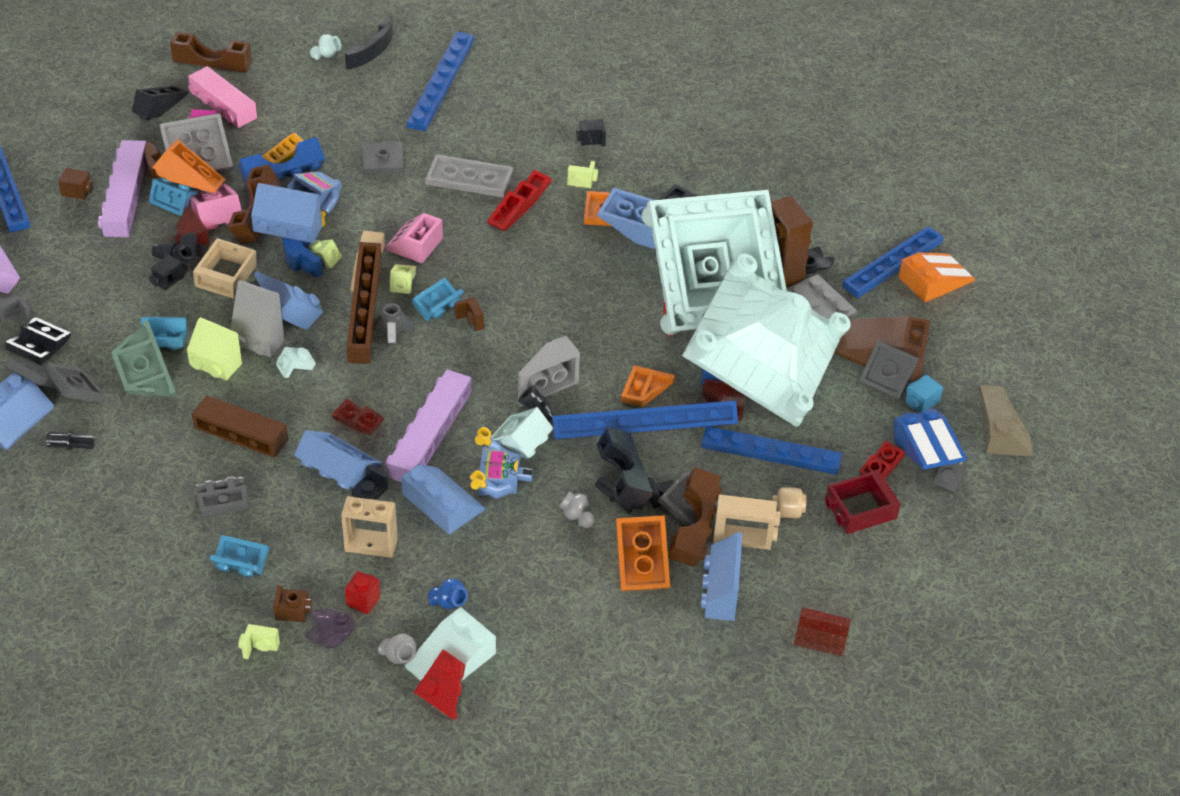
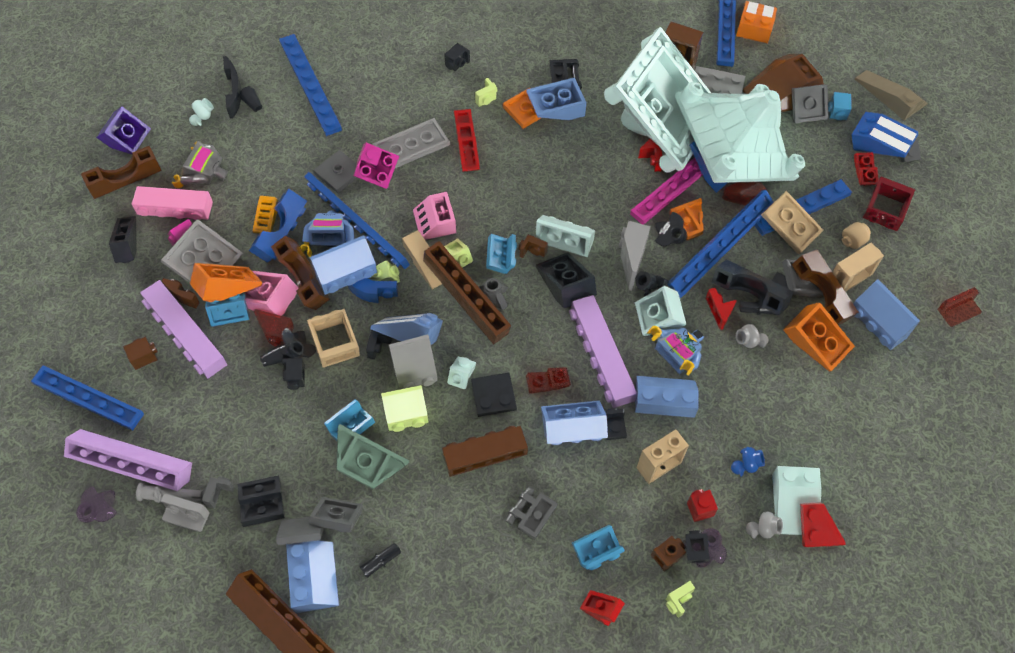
camera: 40 degrees left, 15 degrees up
(190, 601) = (602, 607): none -> red slope
(249, 24) = (123, 131): none -> dark purple slope
(275, 84) = (200, 166): none -> flat silver torso
(301, 396) = (493, 394): none -> black plate
(314, 613) = (702, 555): none -> black brick
(349, 201) = (360, 225): none -> blue plate
(377, 59) = (250, 97): none -> black cone
(413, 168) = (375, 165): none -> dark pink slope
(468, 355) = (567, 279): none -> black slope
(508, 320) = (565, 235): none -> light aqua slope
(578, 470) = (720, 310): none -> red slope
(613, 383) = (669, 230): none -> black plate
(640, 352) = (666, 192): none -> dark pink plate
(738, 450) = (792, 222): none -> tan tile

